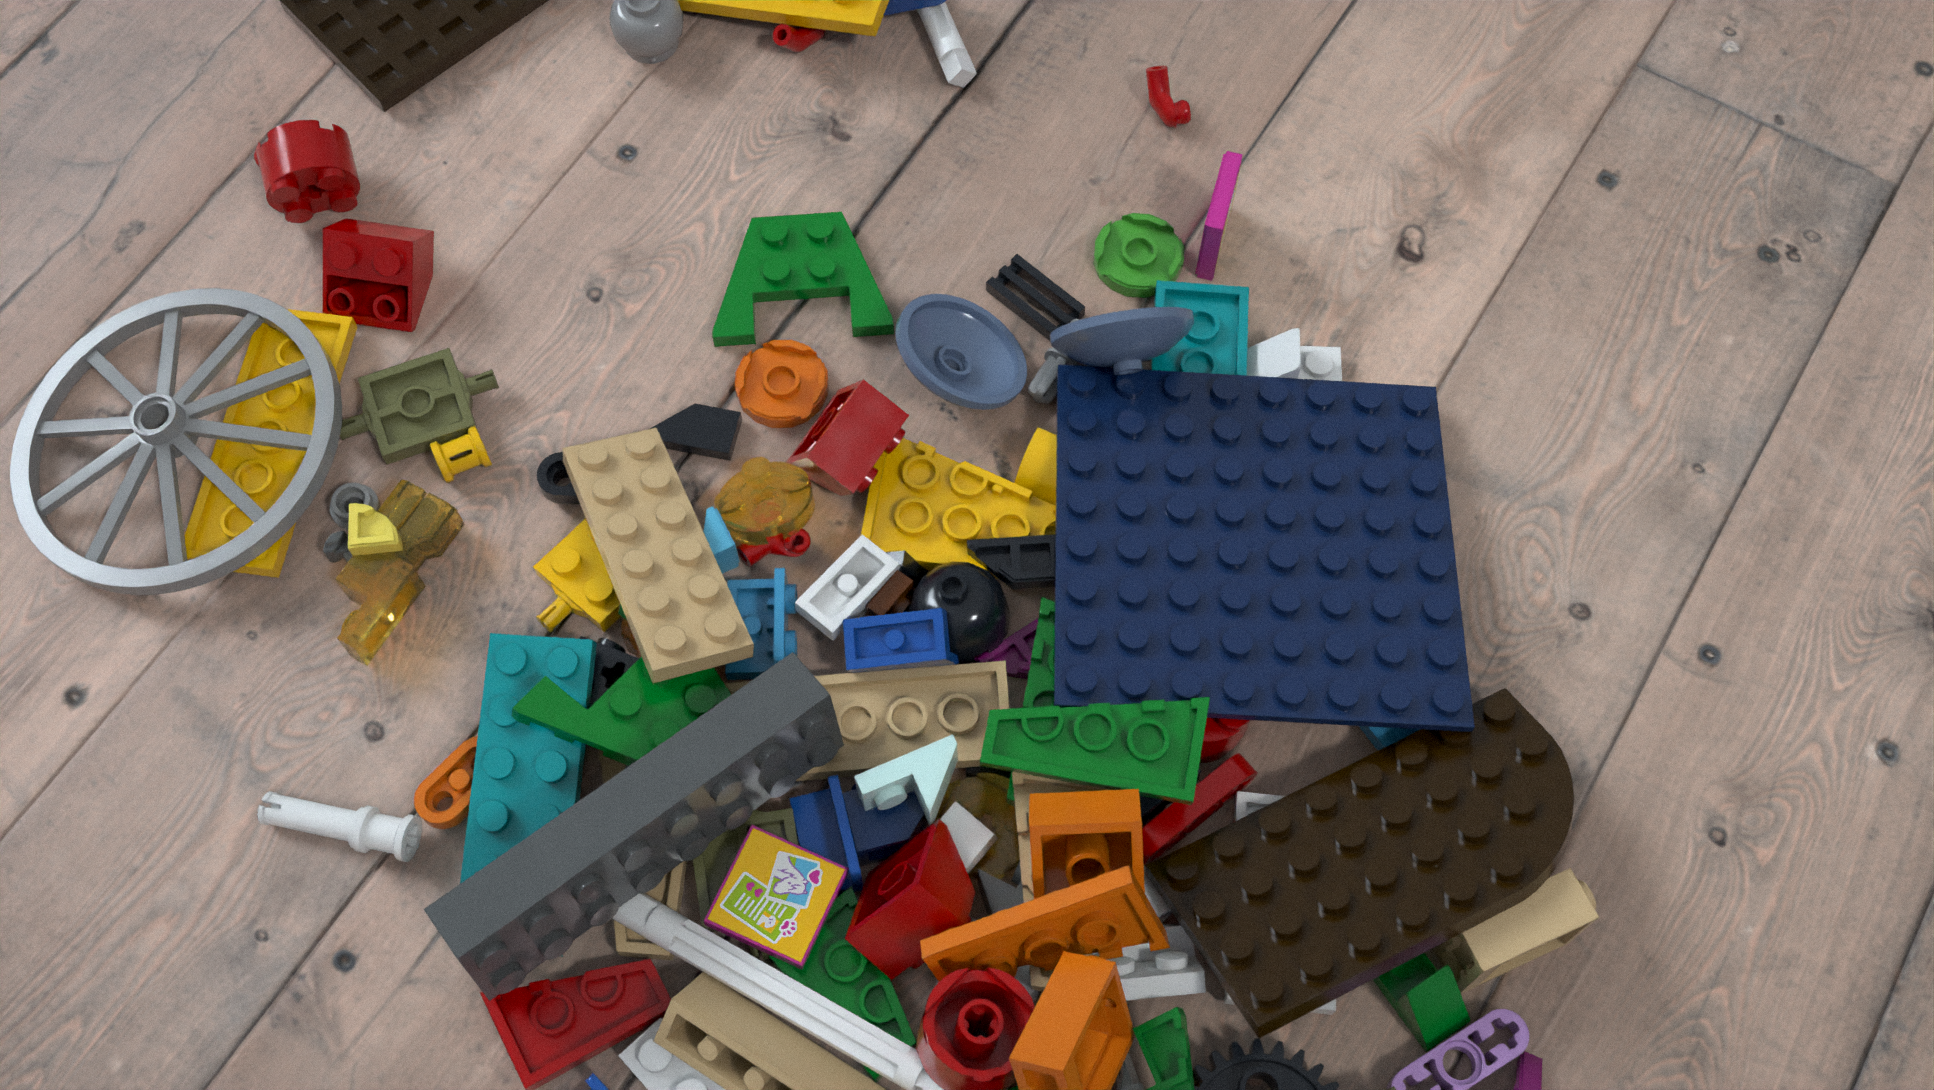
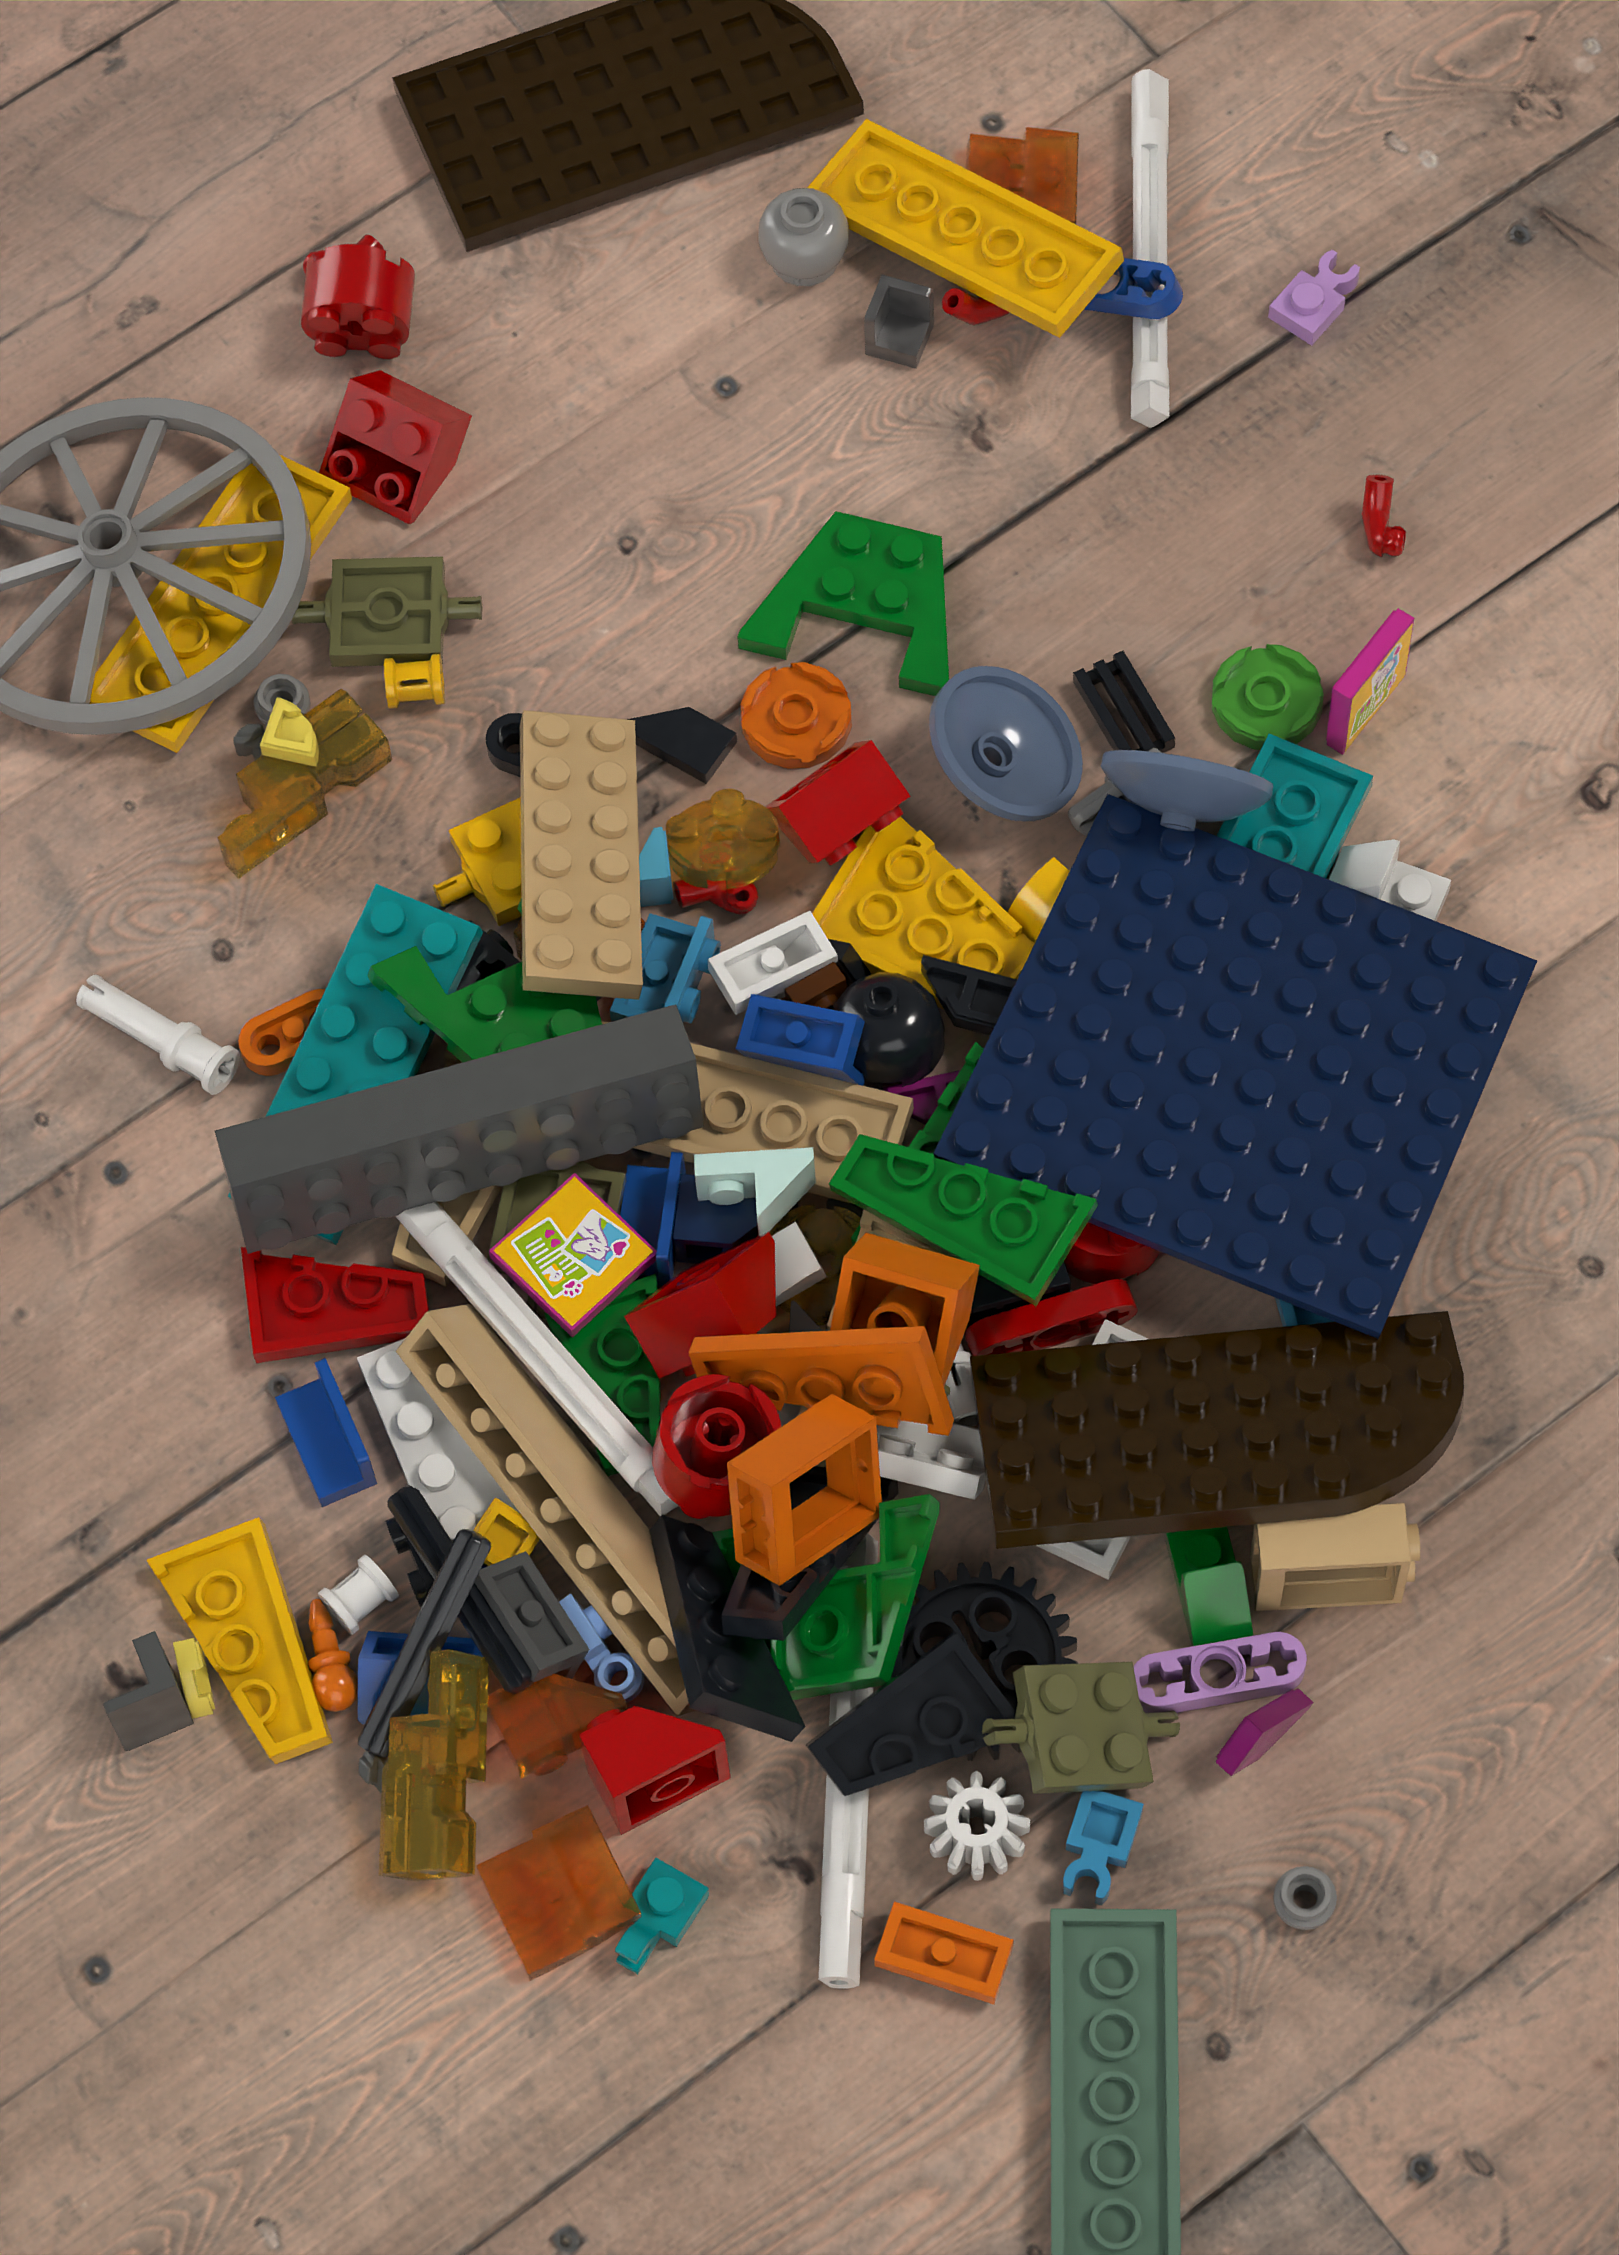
camera: 25 degrees right, 0 degrees up
(745, 62) = (899, 321): none -> flat silver panel

